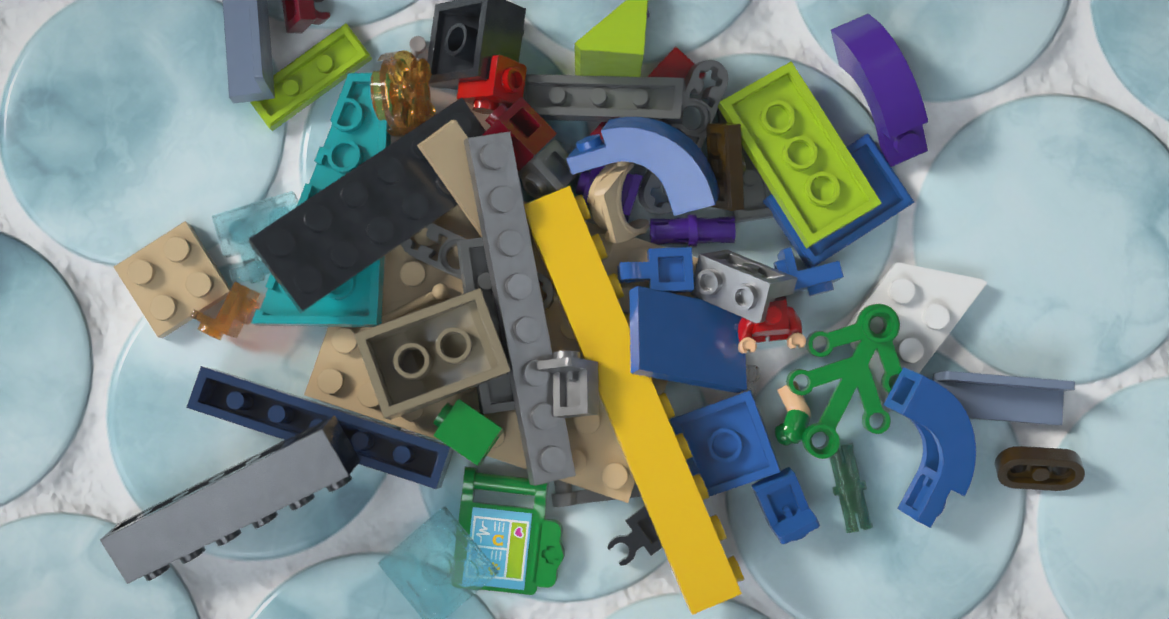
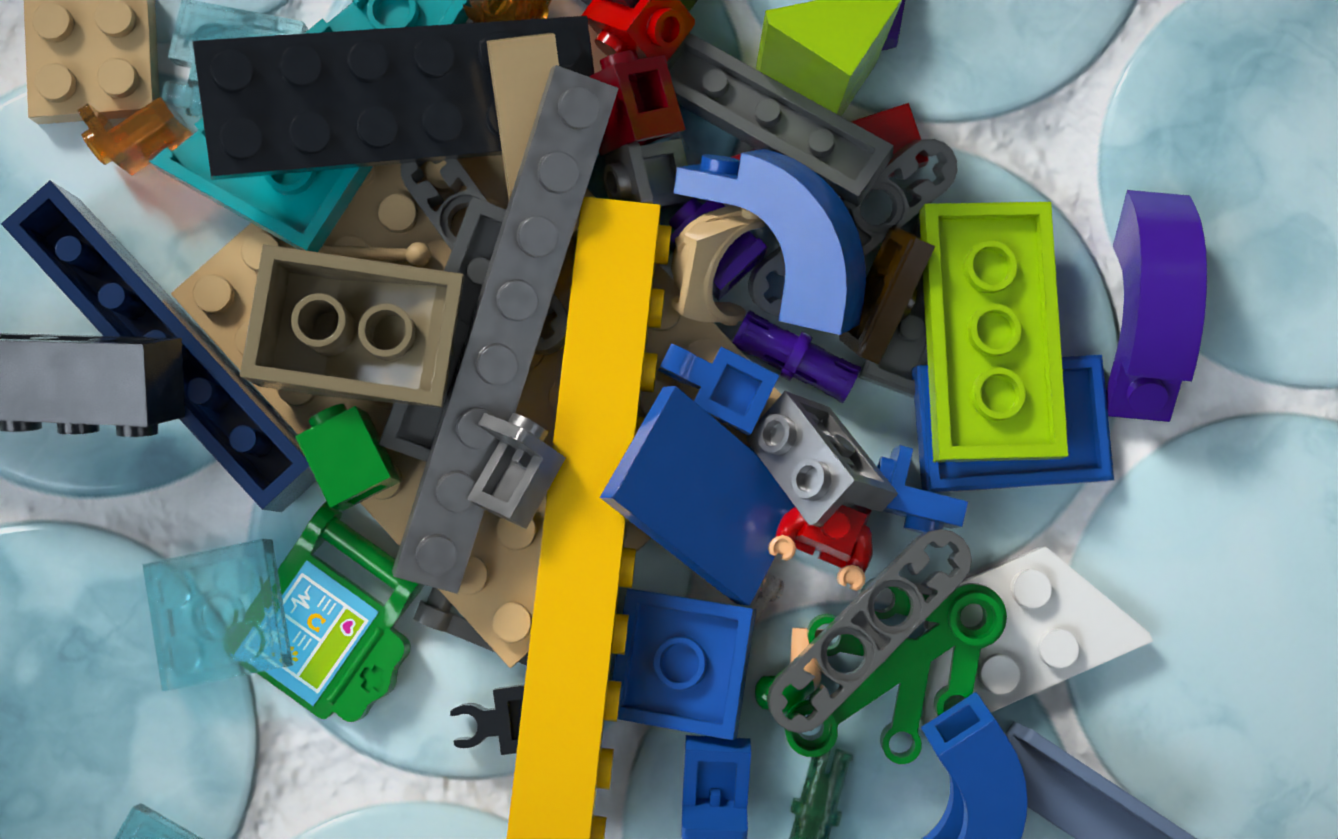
camera: 30 degrees right, 0 degrees up
(817, 363) = (876, 637): none -> dark grey beam

